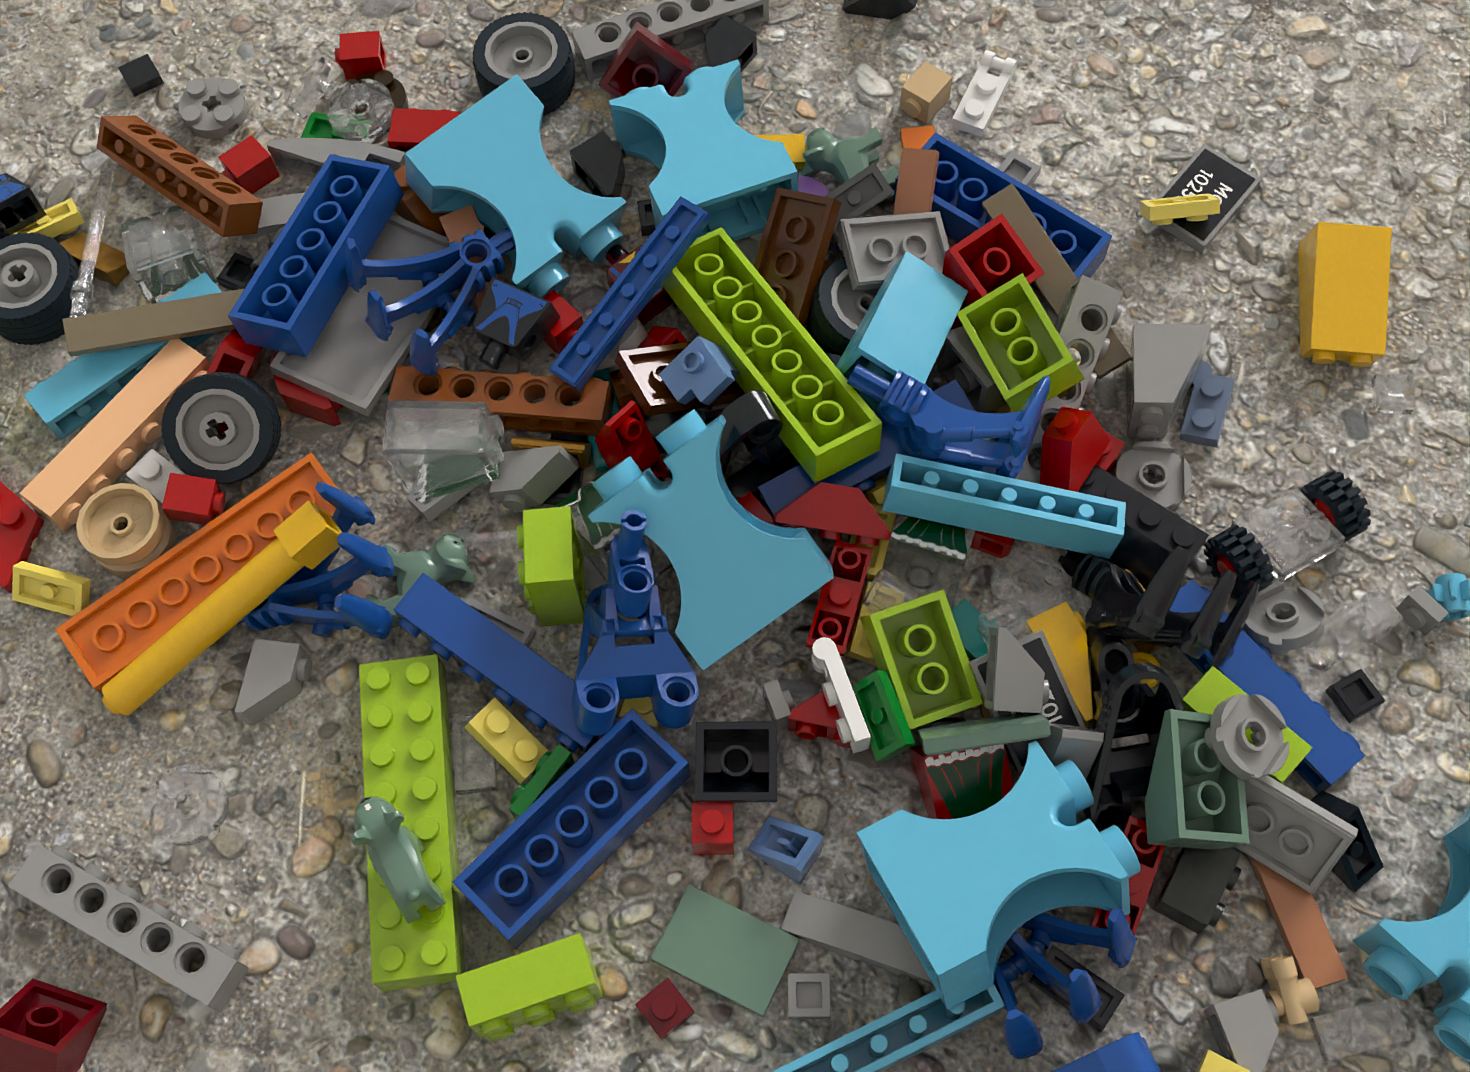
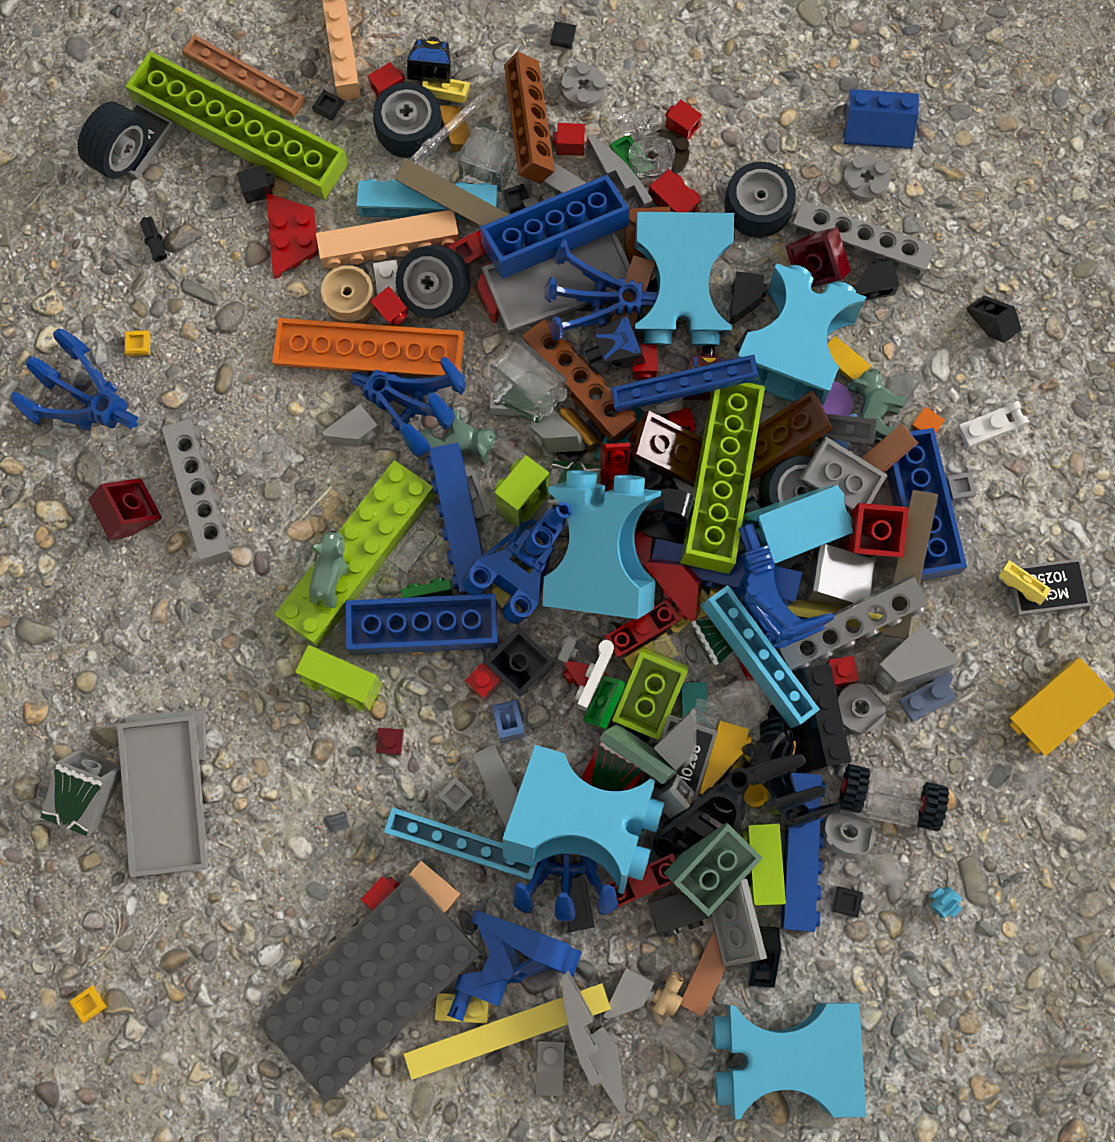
camera: 40 degrees right, 10 degrees up
(50, 588) = (292, 294): light yellow plate -> none
(301, 541) = (416, 377): yellow brick -> none
(506, 740) = (430, 555): light yellow plate -> none
(699, 372) = (677, 458): medium blue brick -> none
(725, 950) = (439, 741): sand green tile -> none
(925, 92) = (958, 397): tan brick -> none
(1019, 343) = (846, 584): lime brick -> none
(1071, 448) = (821, 659): red slope -> none
(1230, 743) = (766, 878): light grey plate -> none
(1421, 611) = (921, 894): light grey plate -> none

